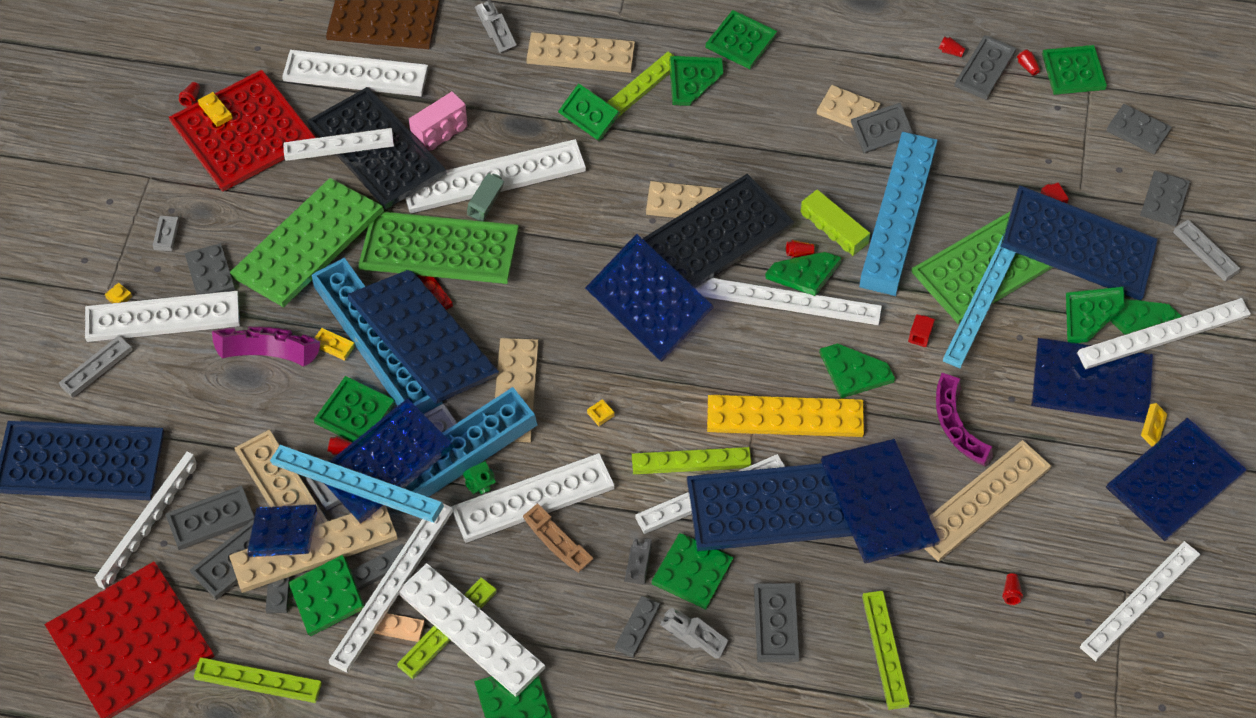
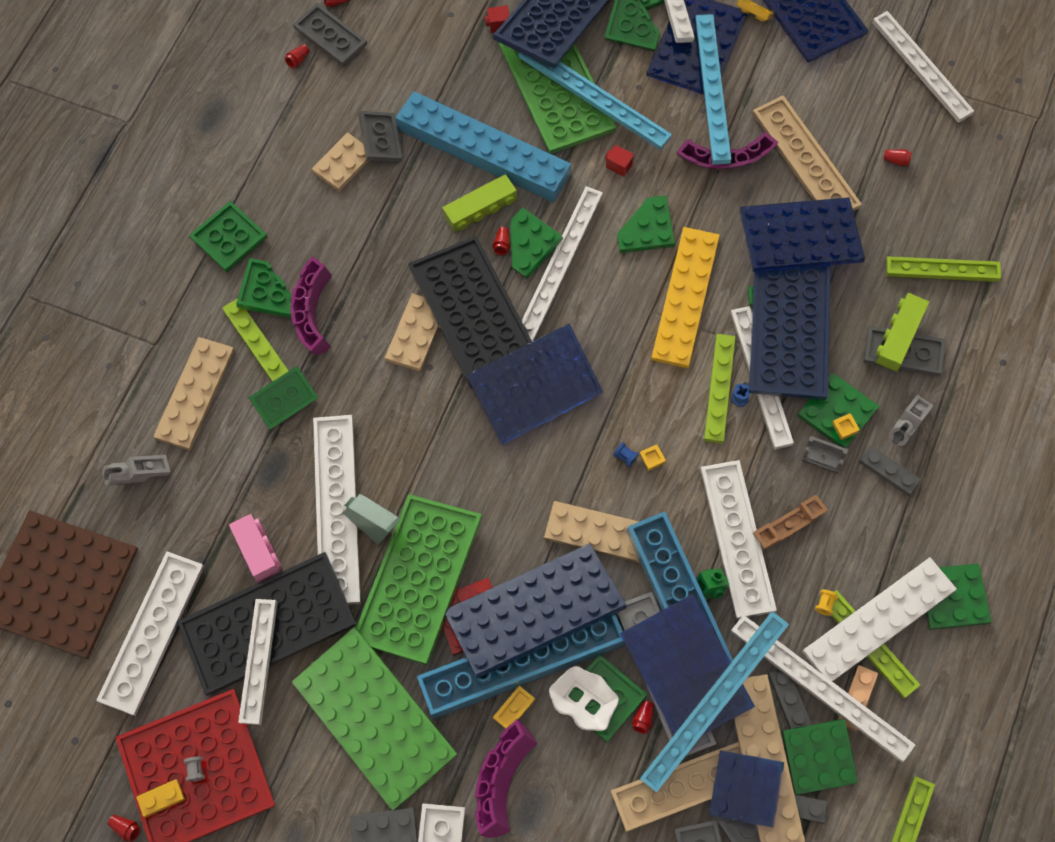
camera: 75 degrees left, 10 degrees up
(234, 122) = (194, 769): none -> light grey bush
(335, 387) = (594, 688): none -> white piece
(477, 576) = (826, 602): none -> yellow bush
(598, 389) = (626, 454): none -> blue bush
(670, 570) = (845, 426): none -> yellow plate
(682, 474) = (737, 399): none -> blue bush
(684, 110) = (304, 305): none -> magenta brick
(791, 609) = (902, 331): none -> lime brick
(1031, 393) = (713, 90): none -> medium azure plate

